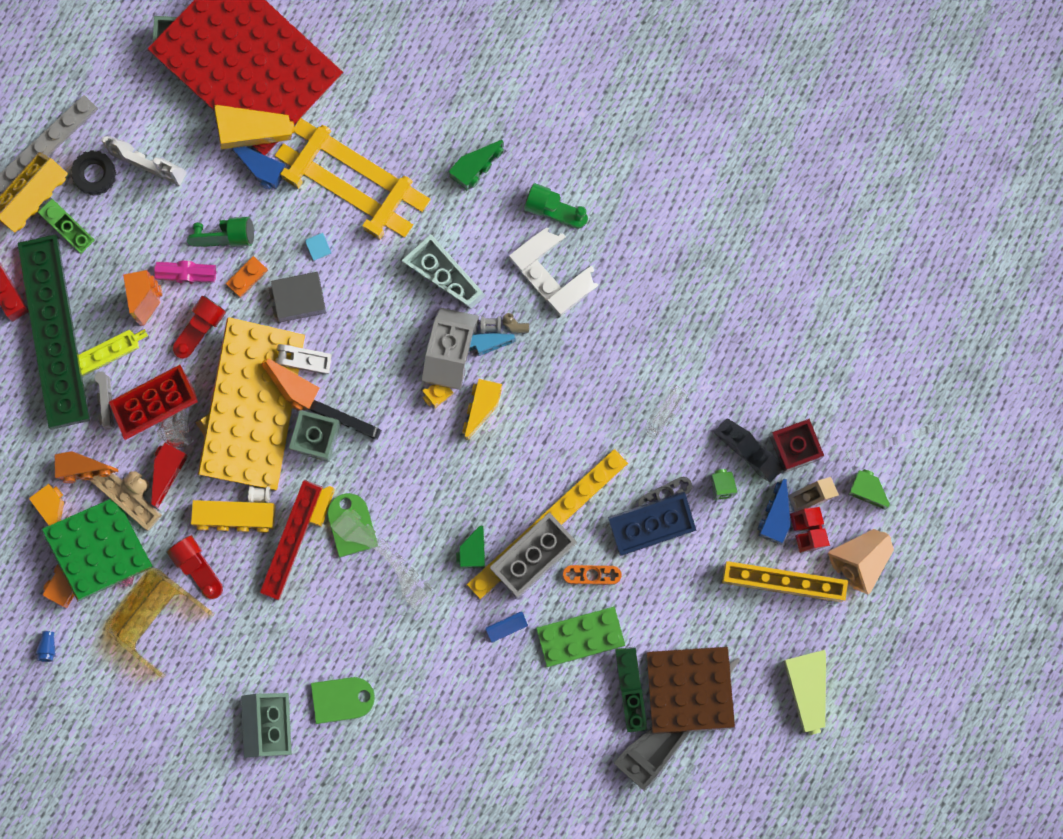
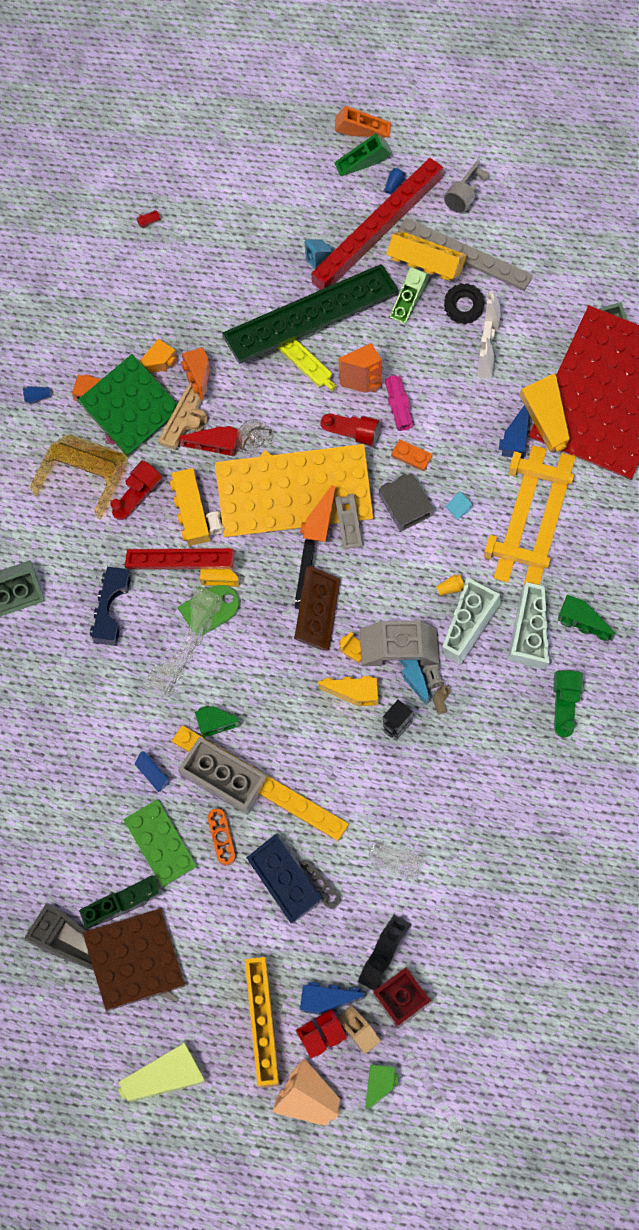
camera: 80 degrees right, 10 degrees down
(106, 416) = (263, 373): light grey plate -> none
(153, 401) = (270, 408): red slope -> none
(235, 232) = (448, 432): green piece -> none
(294, 613) = (115, 583): none -> dark blue arch
(315, 435) = (280, 552): sand green slope -> none
(340, 699) = (47, 645): bright green tile -> none
(387, 416) = (317, 608): none -> reddish brown plate
(401, 279) = (451, 585): none -> yellow cone
(470, 217) = (529, 633): none -> light aqua wedge
(527, 371) = (397, 719): none -> black piece
(559, 298) = (480, 730): white wedge -> none
(723, 485) = (341, 935): bright green slope -> none

